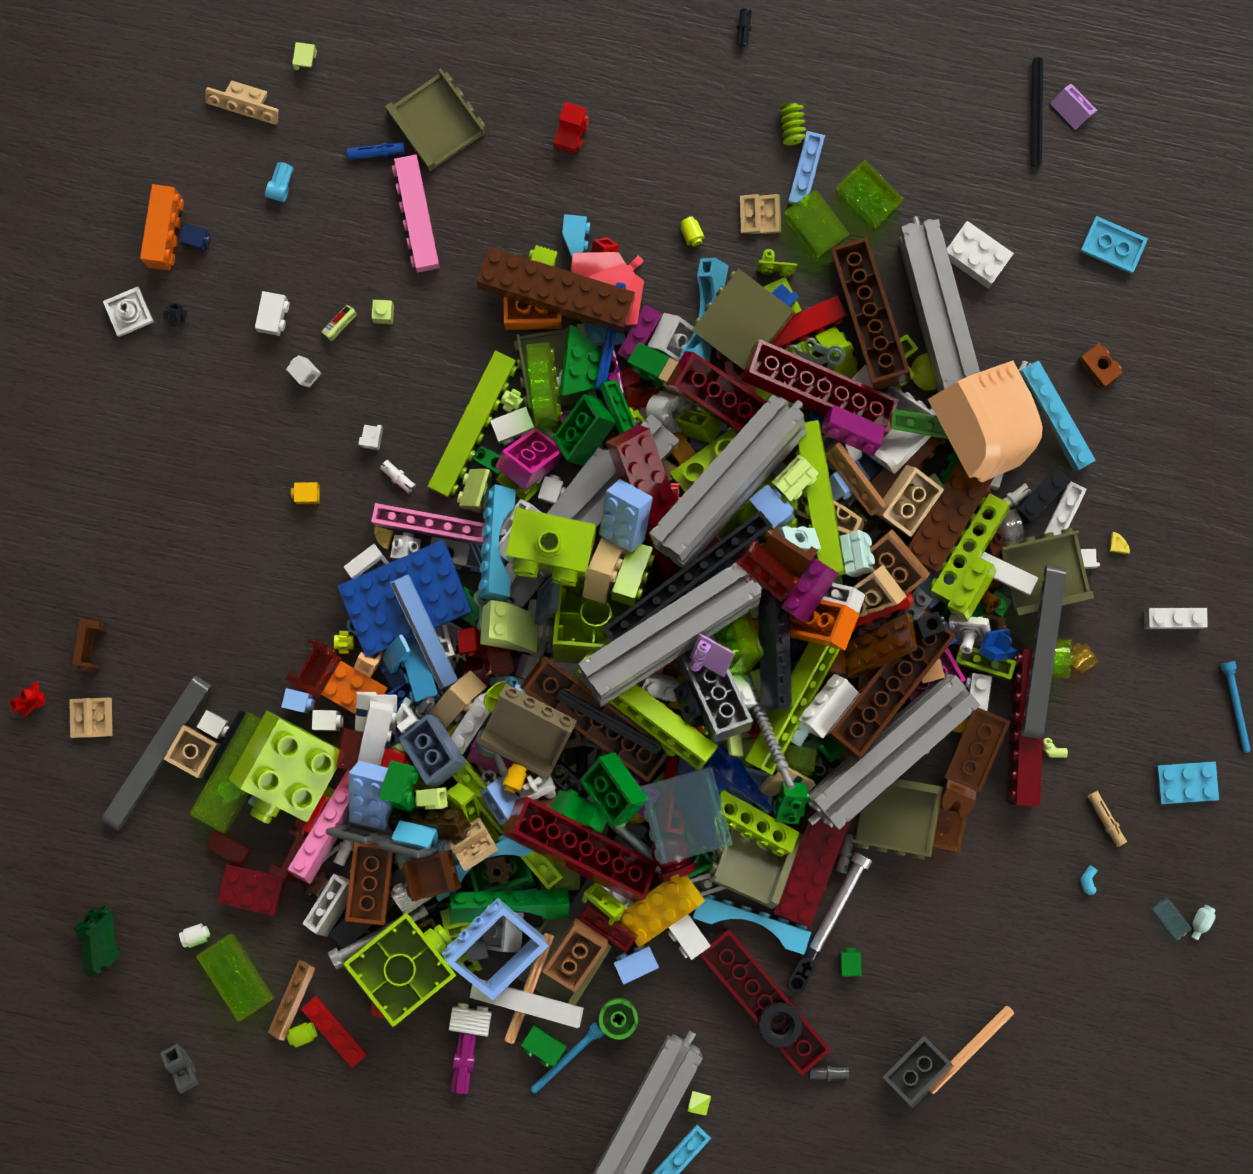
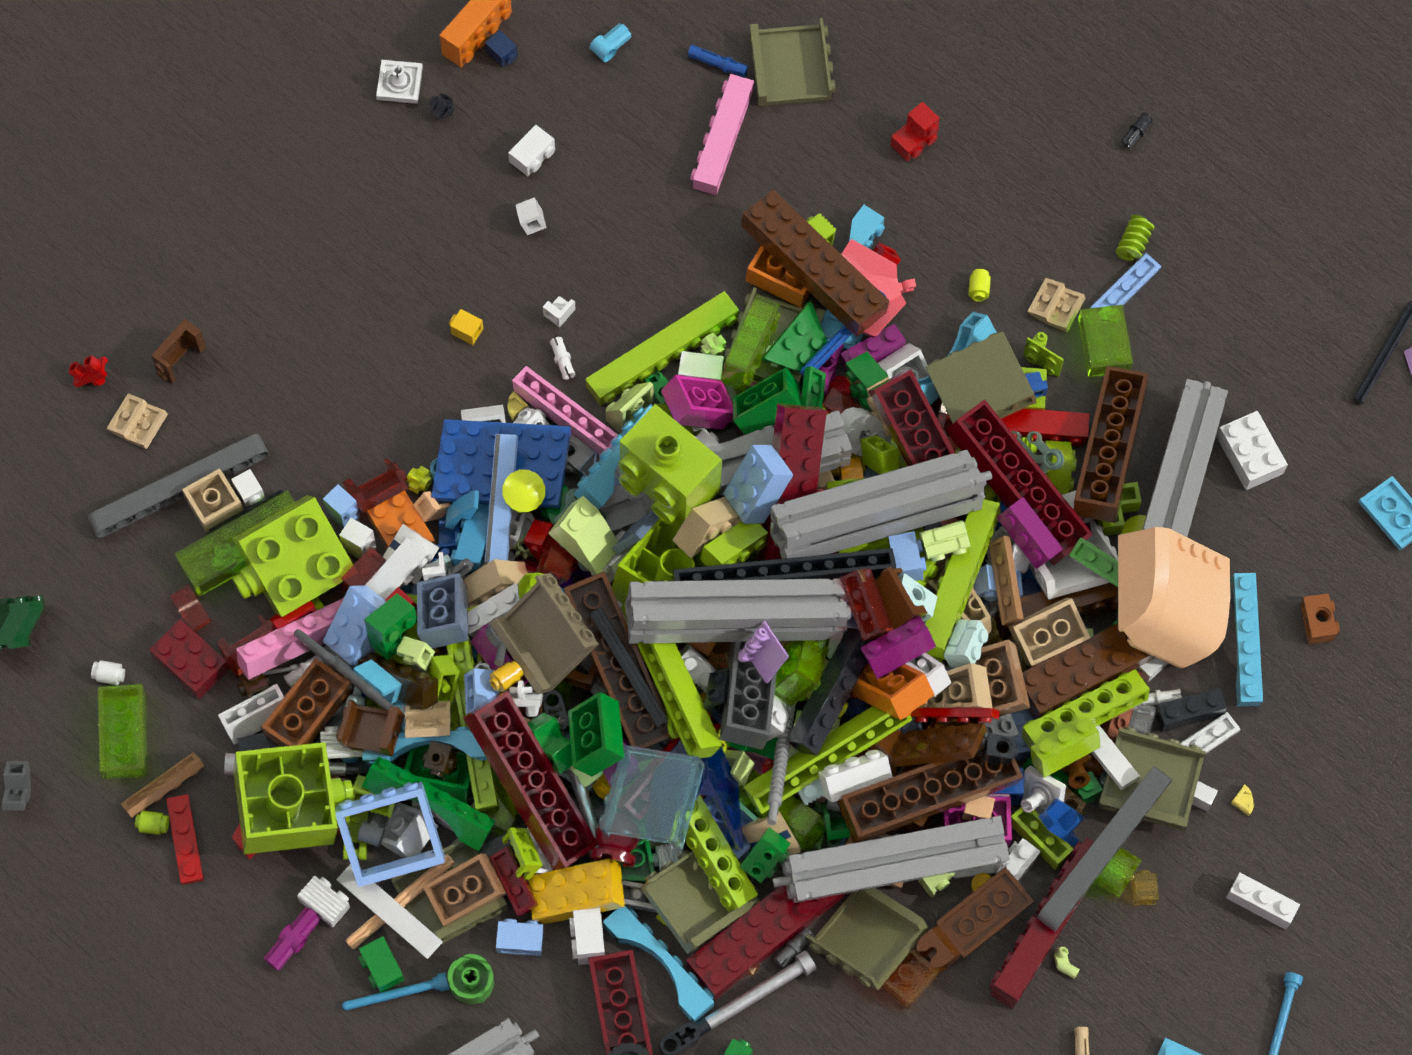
camera: 30 degrees right, 15 degrees down
(344, 317) = (591, 194): yellowish green slope -> none
(382, 311) = (638, 203): yellowish green brick -> none
(439, 617) = (523, 491): none -> neon yellow dish
(869, 195) = (1173, 340): clear neon green brick -> none

